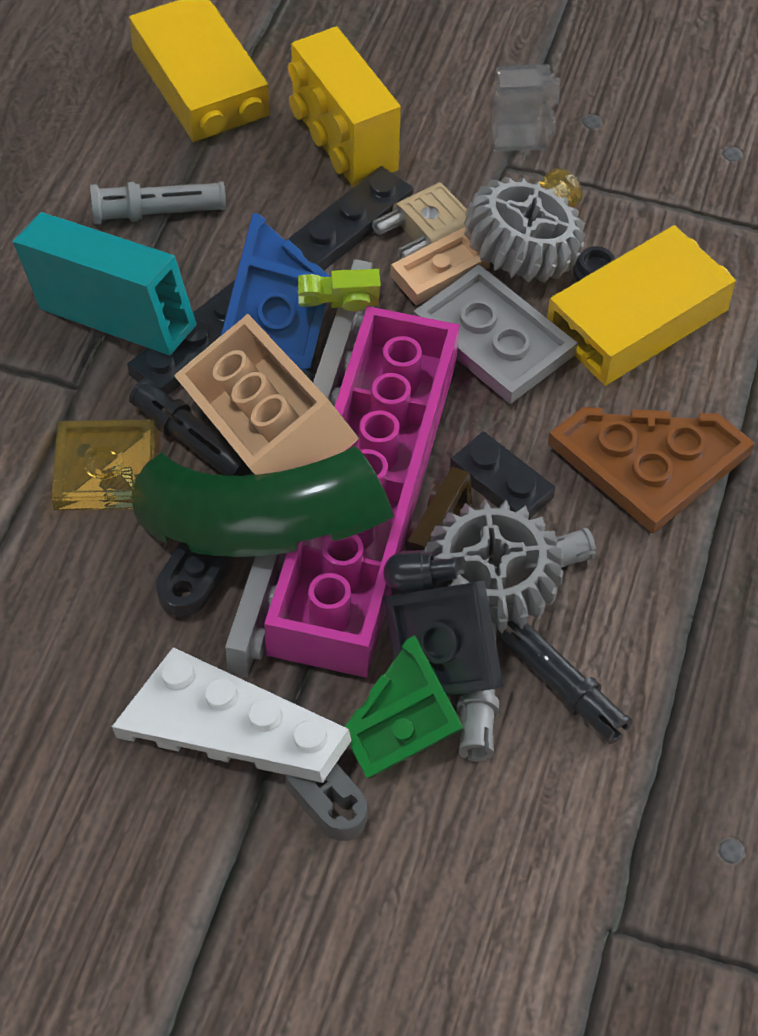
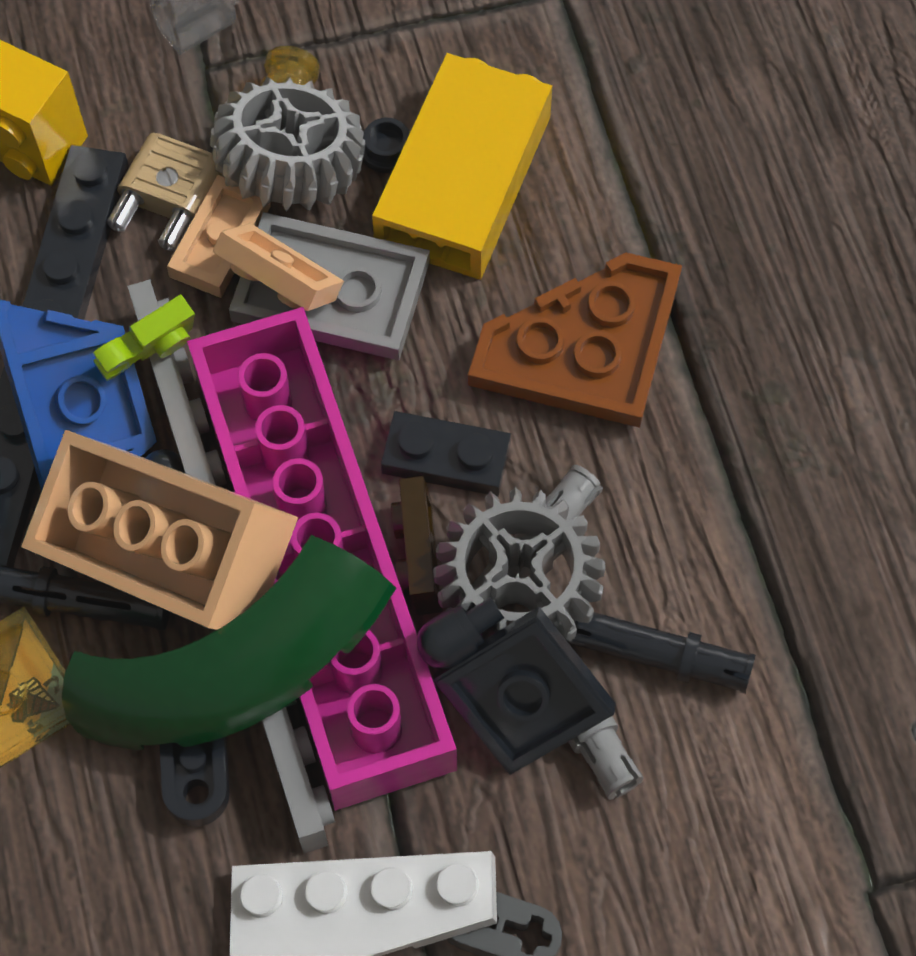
camera: 30 degrees left, 10 degrees up
(402, 713) = (528, 795): green wing -> none
(459, 291) = (278, 266): none -> light nougat plate

